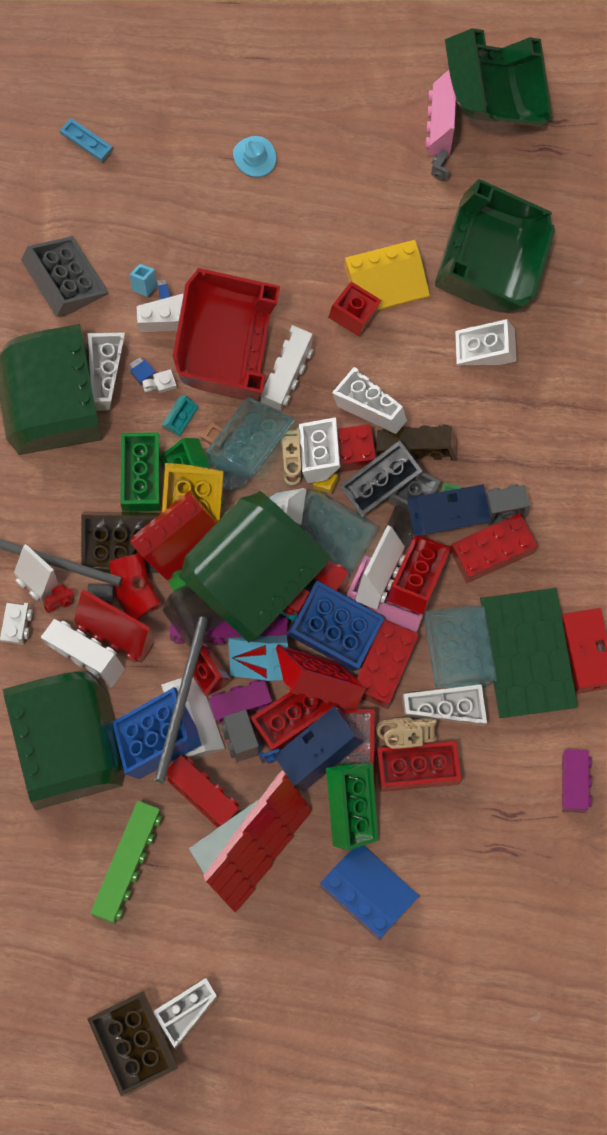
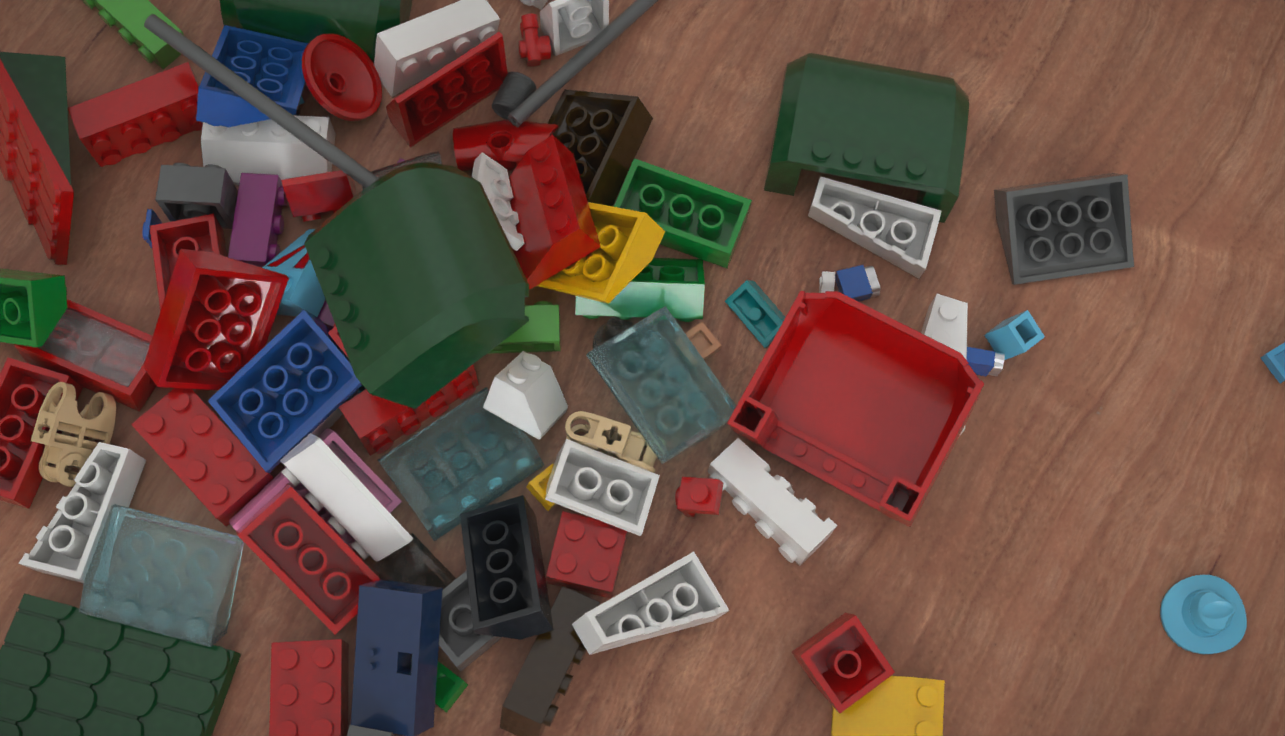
camera: 110 degrees right, 0 degrees up
(131, 690) = (341, 77): none -> red dish
(169, 572) = (499, 192): none -> white wing
(300, 403) = (699, 496): none -> red bracket
(319, 748) = (112, 291): dark blue brick -> none

